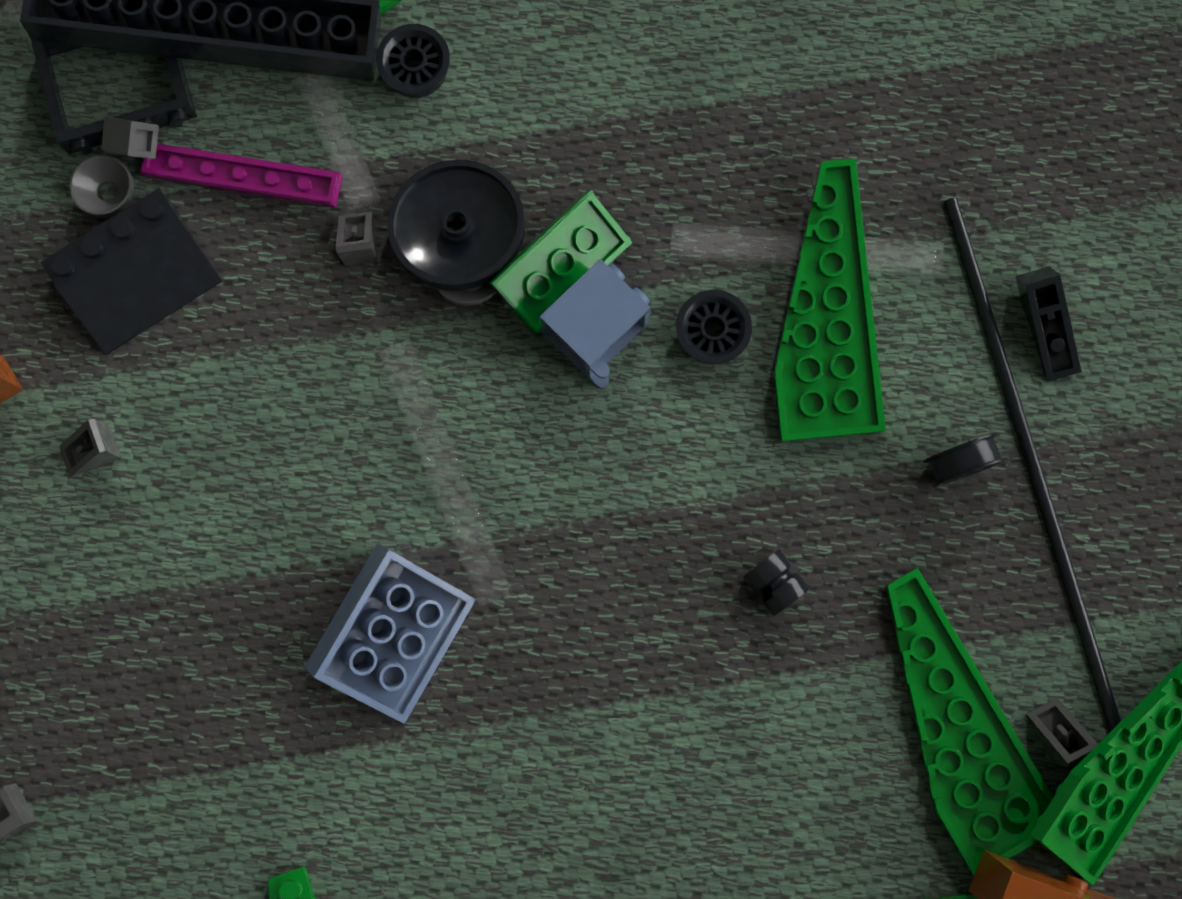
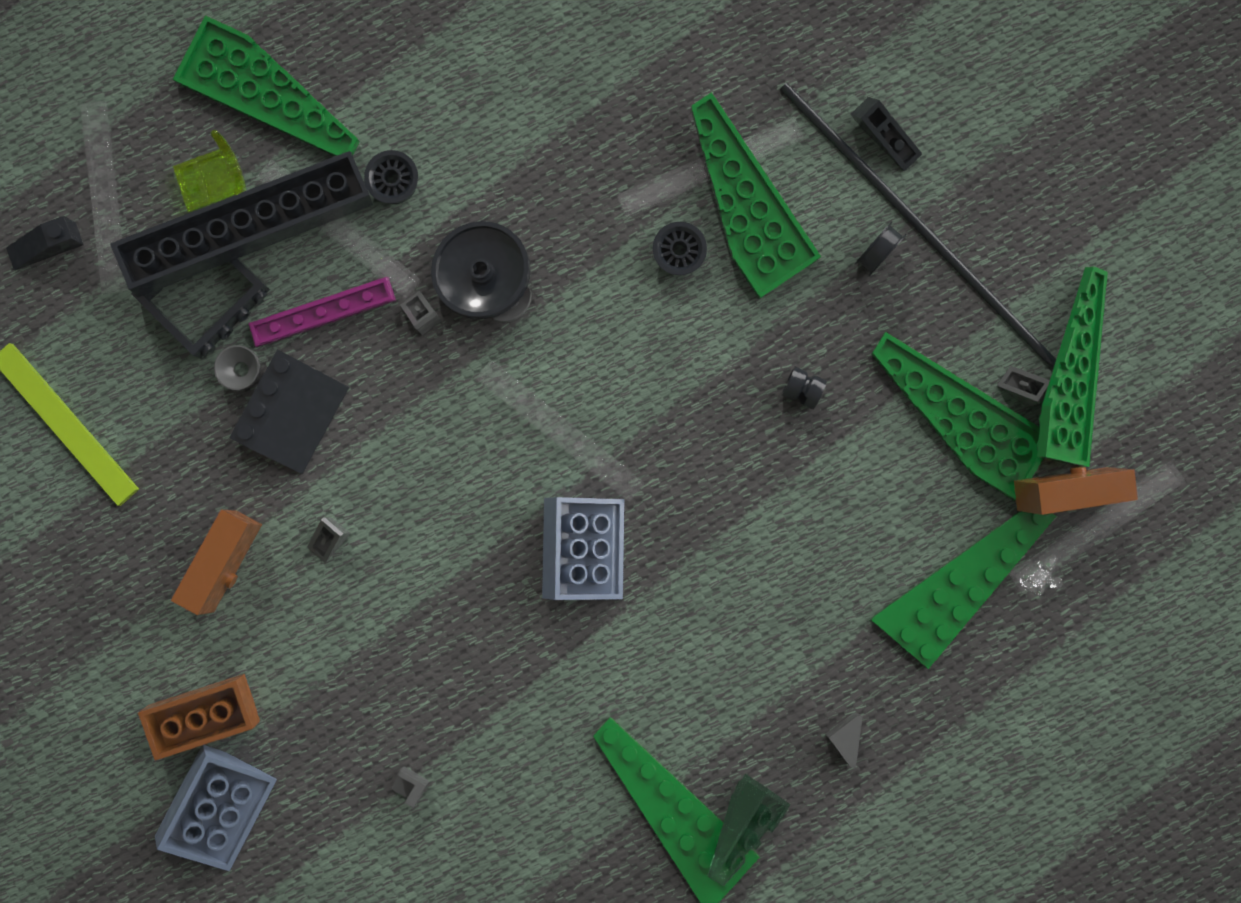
camera: 25 degrees left, 5 degrees up
(130, 137) = (238, 327): dark grey panel -> none
(559, 259) = (560, 258): green tile -> none
(596, 320) = (604, 284): sand blue container -> none

